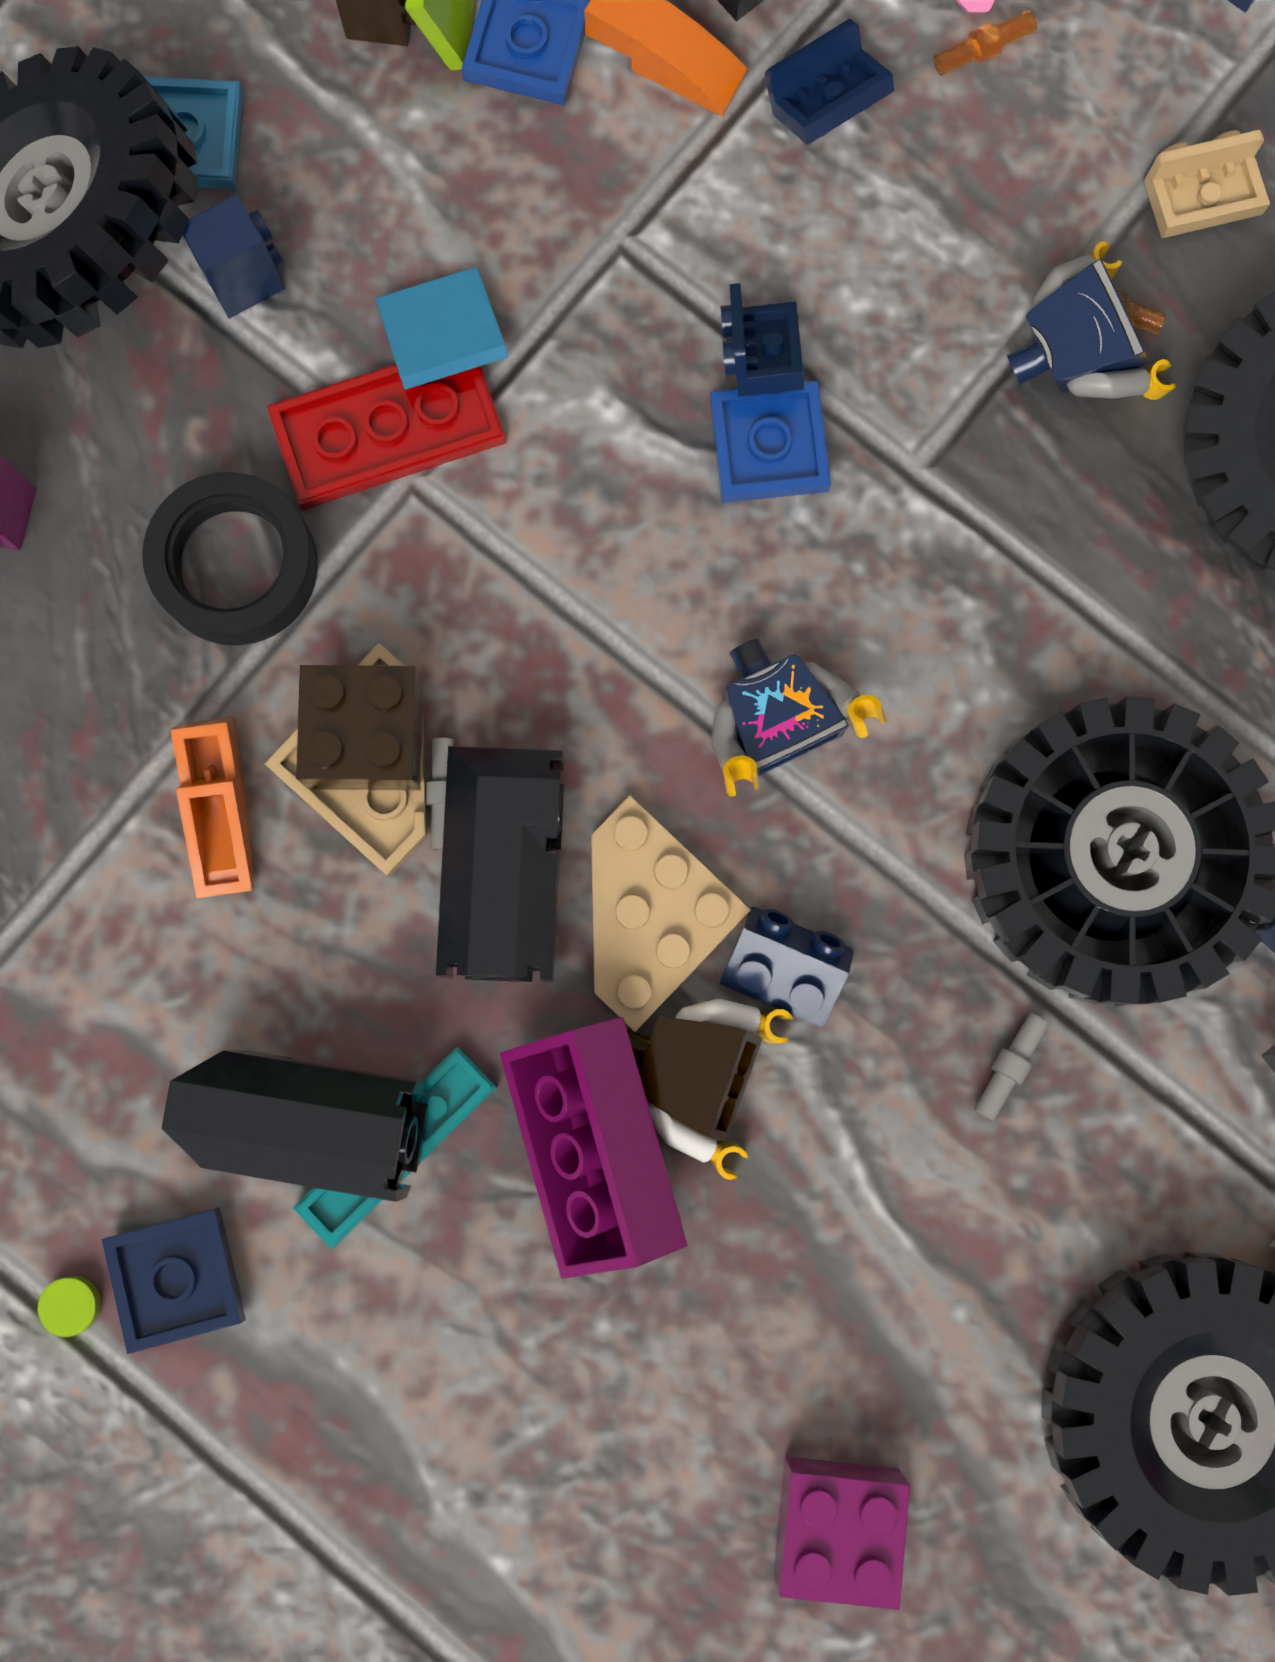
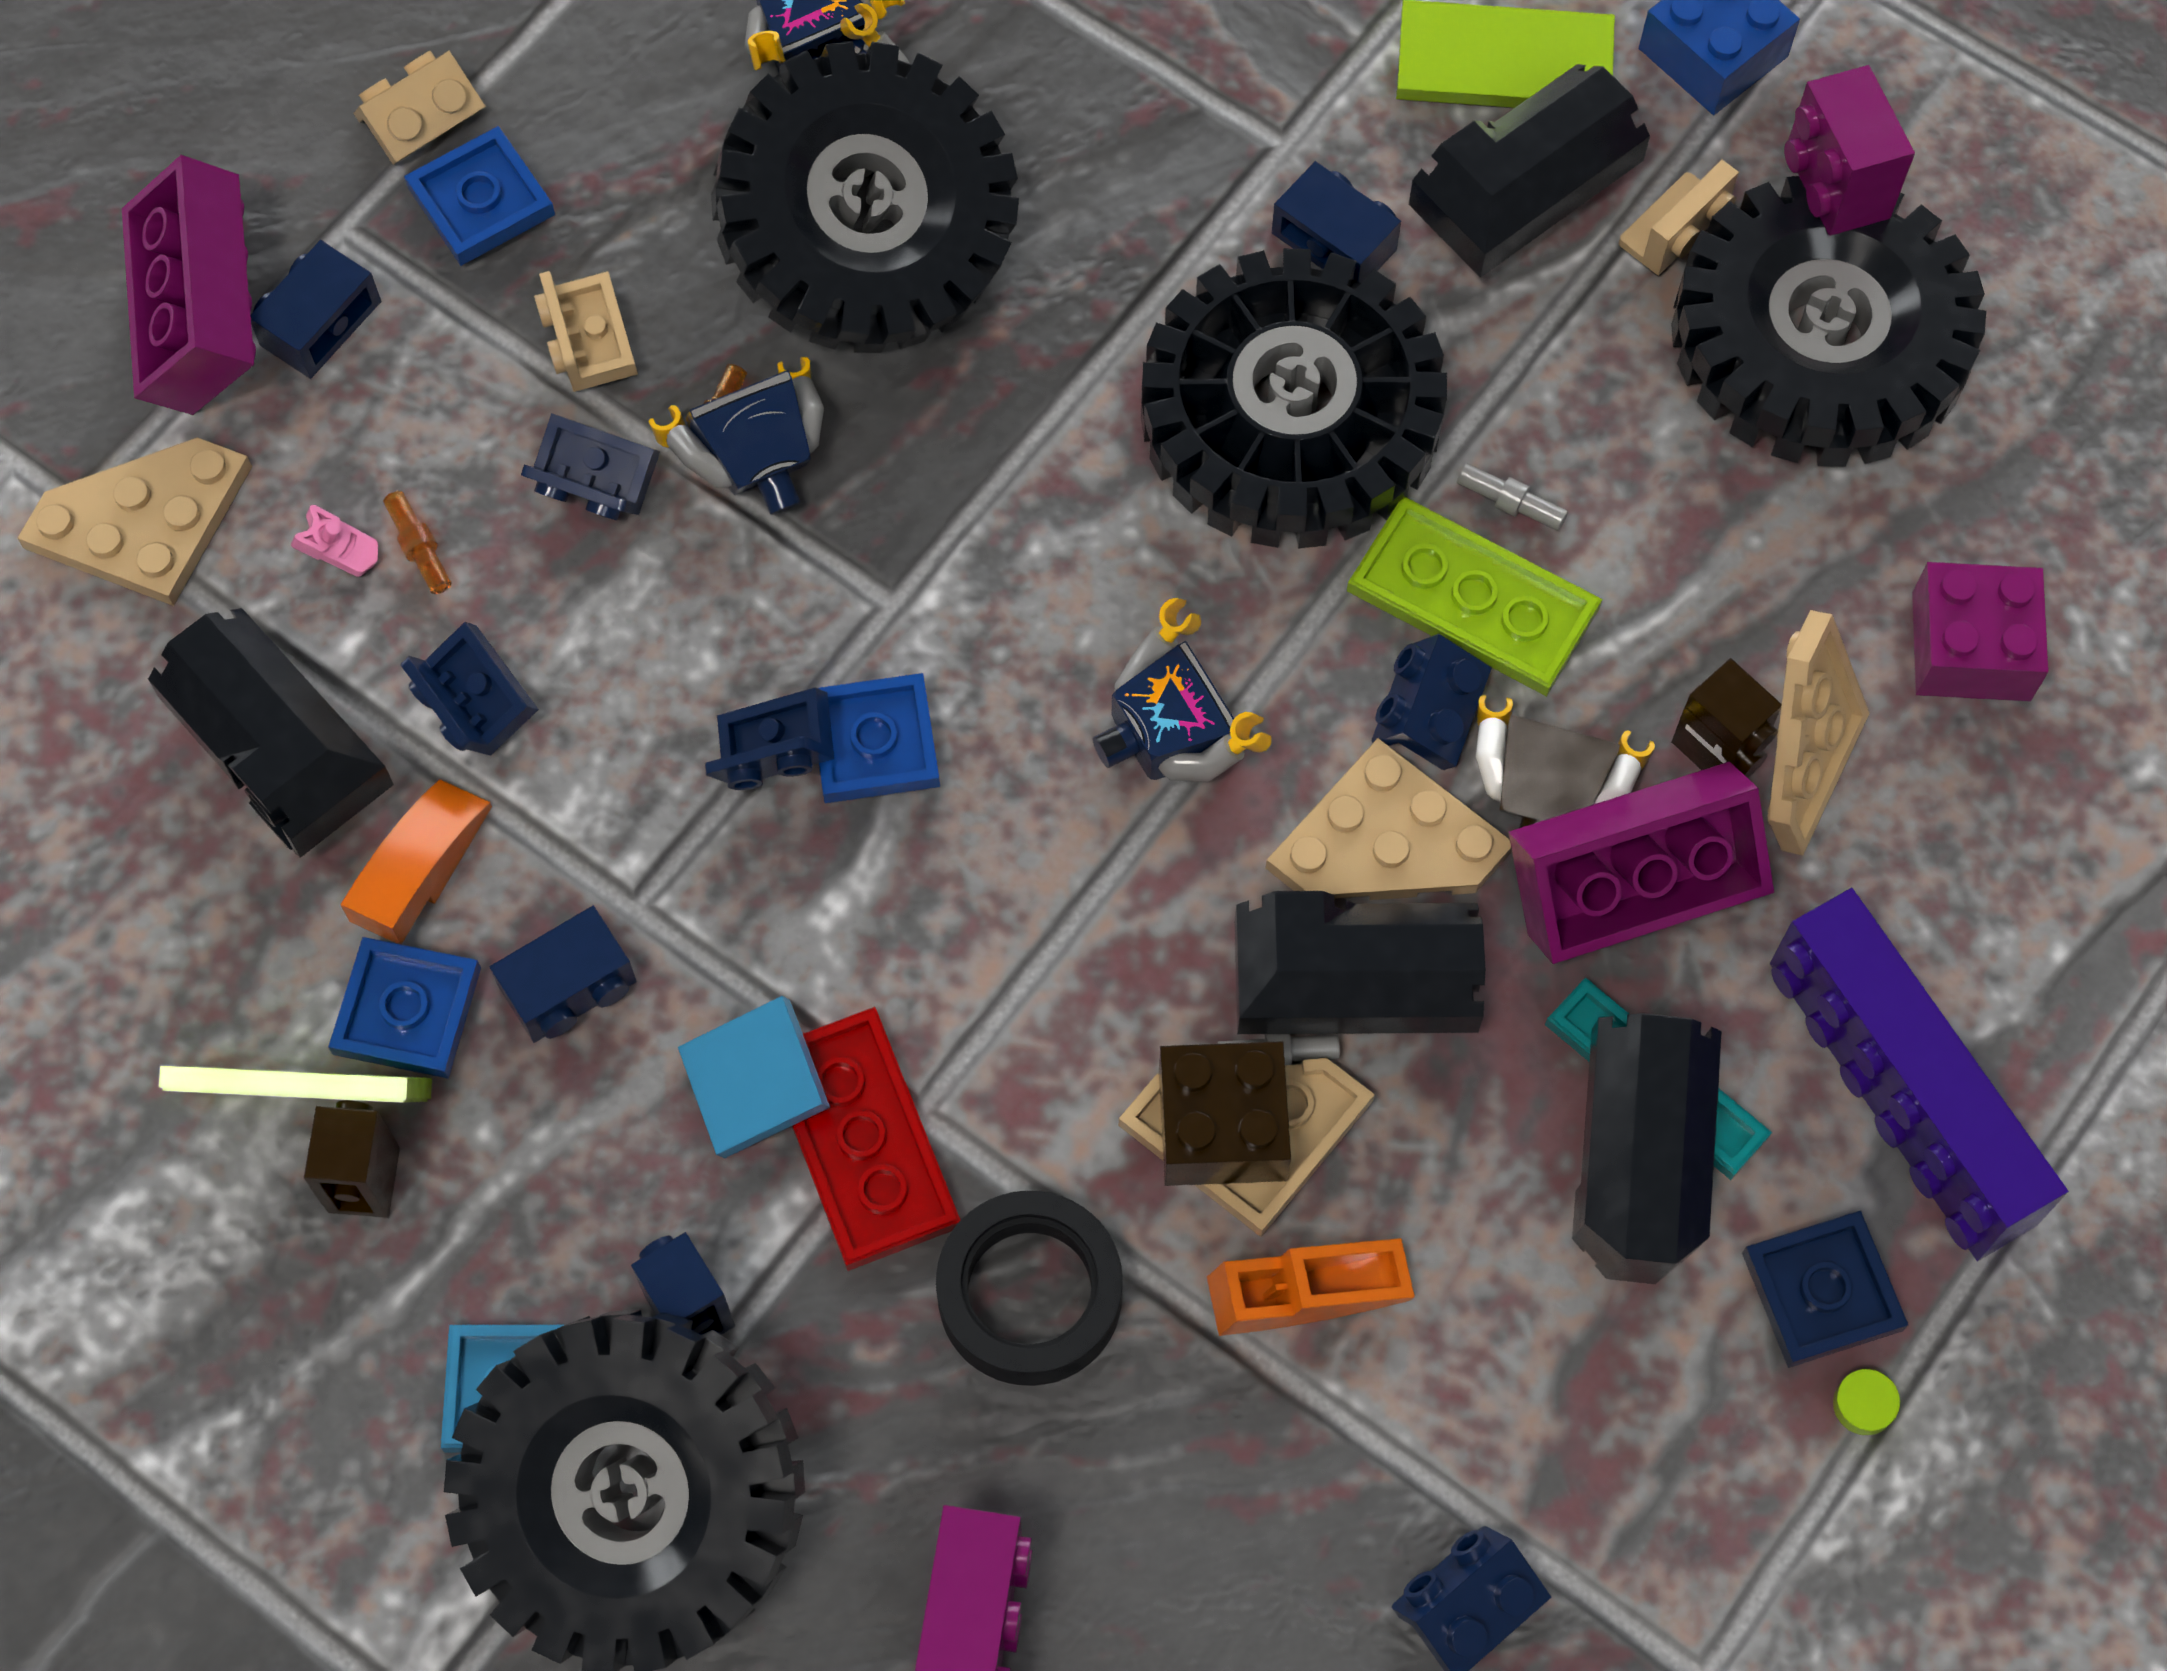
camera: 90 degrees left, 15 degrees down
(353, 1397) = (1915, 1076): none -> dark purple brick
(547, 168) = (564, 975): none -> dark blue brick
(731, 1341) = (1816, 730): none -> tan plate
(736, 1255) = (1728, 721): none -> dark brown brick
(905, 1019) = (1474, 595): none -> lime tile
(1055, 190) = (594, 466): none -> dark blue bracket

